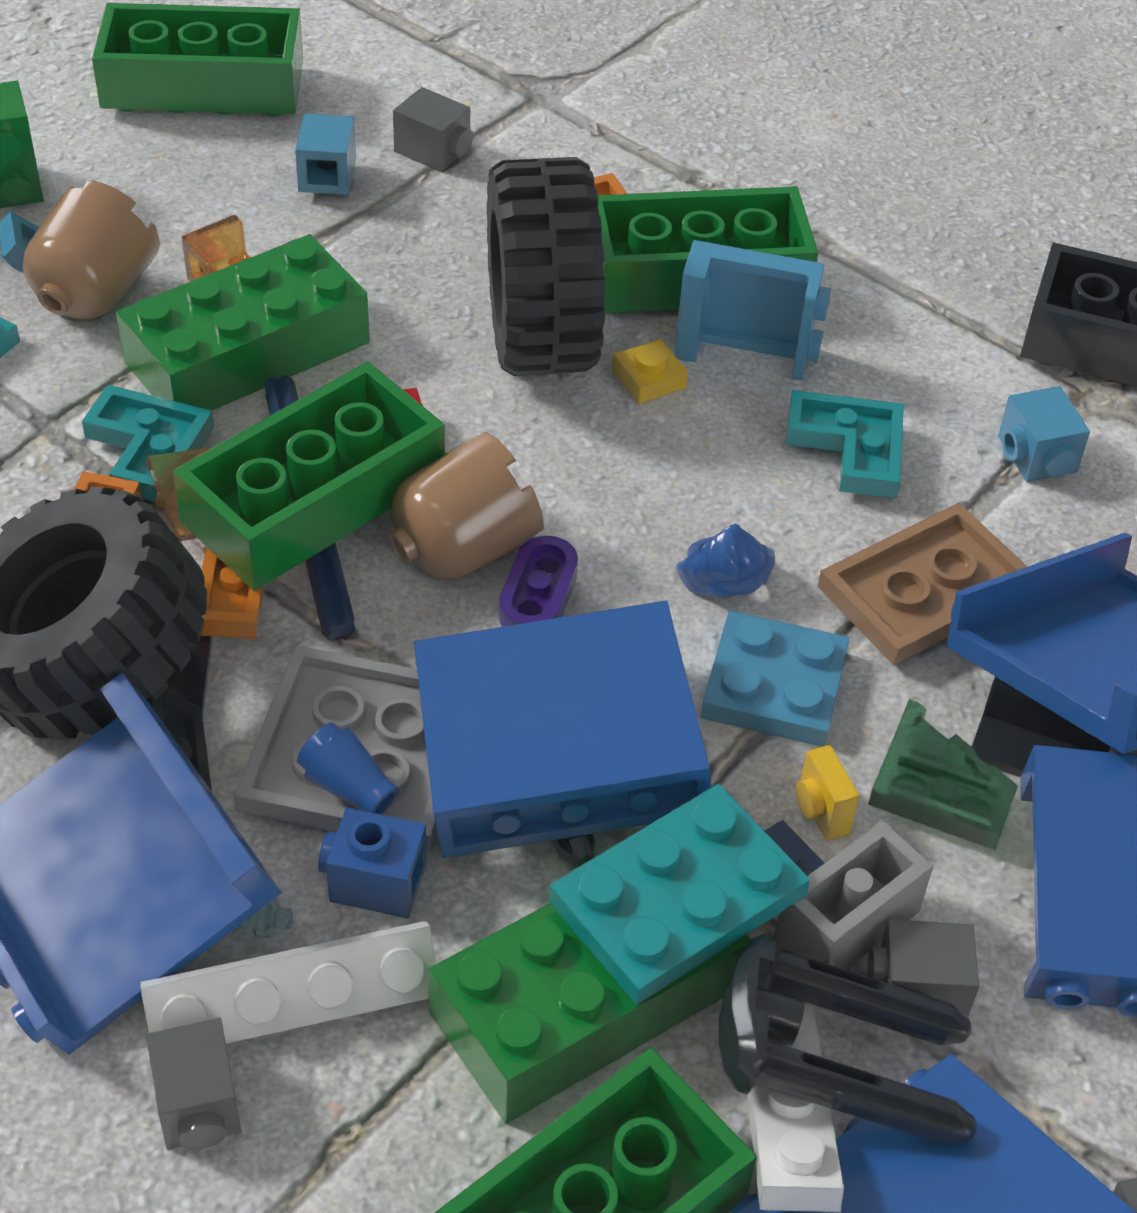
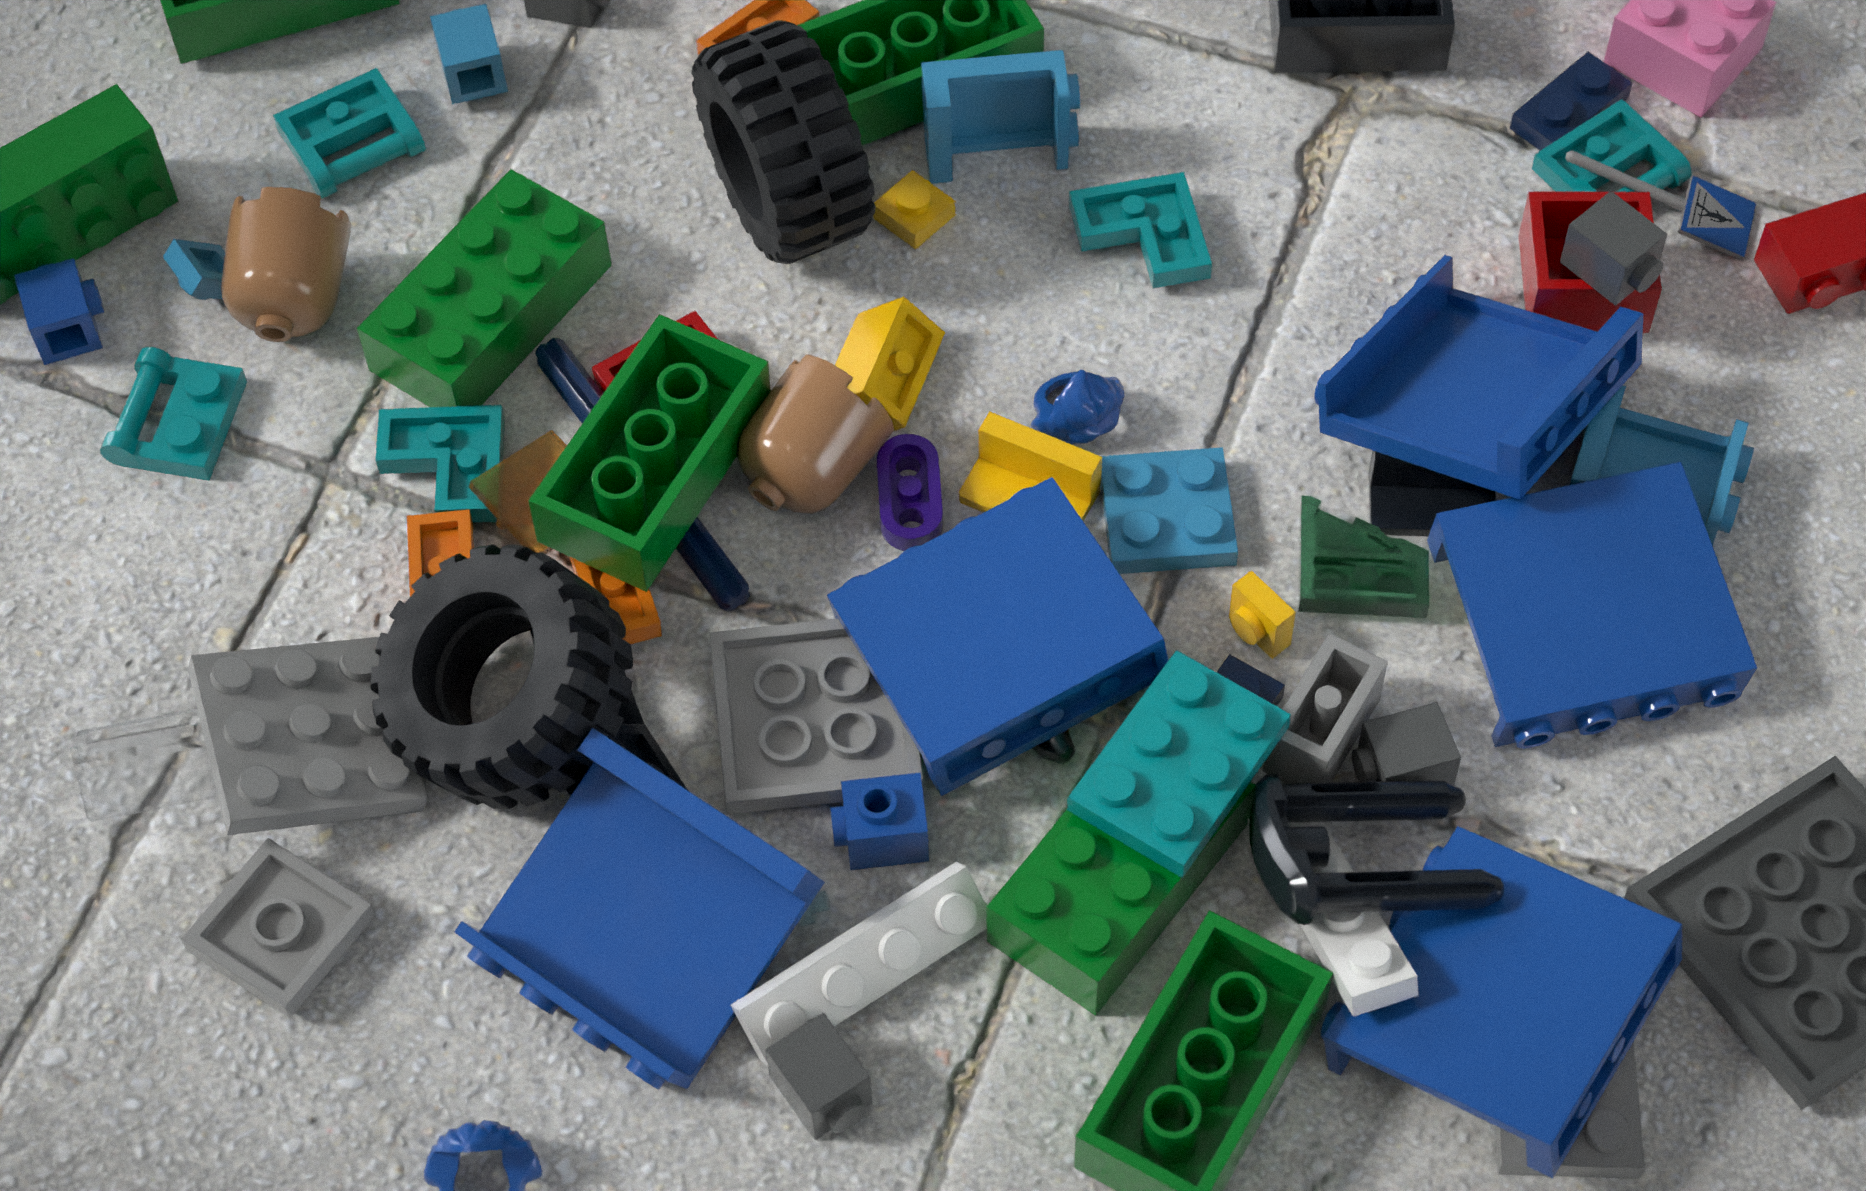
camera: 15 degrees left, 10 degrees up
(202, 174) = (342, 119): none -> teal plate
(214, 247) = (411, 219): clear orange panel -> none
(345, 768) = (825, 745): blue cone -> none
(574, 476) = (890, 356): none -> yellow panel
(651, 577) = (1021, 458): none -> yellow panel
(908, 582) = (1266, 363): medium nougat plate -> none
(1043, 434) = (1329, 162): dark azure brick -> none

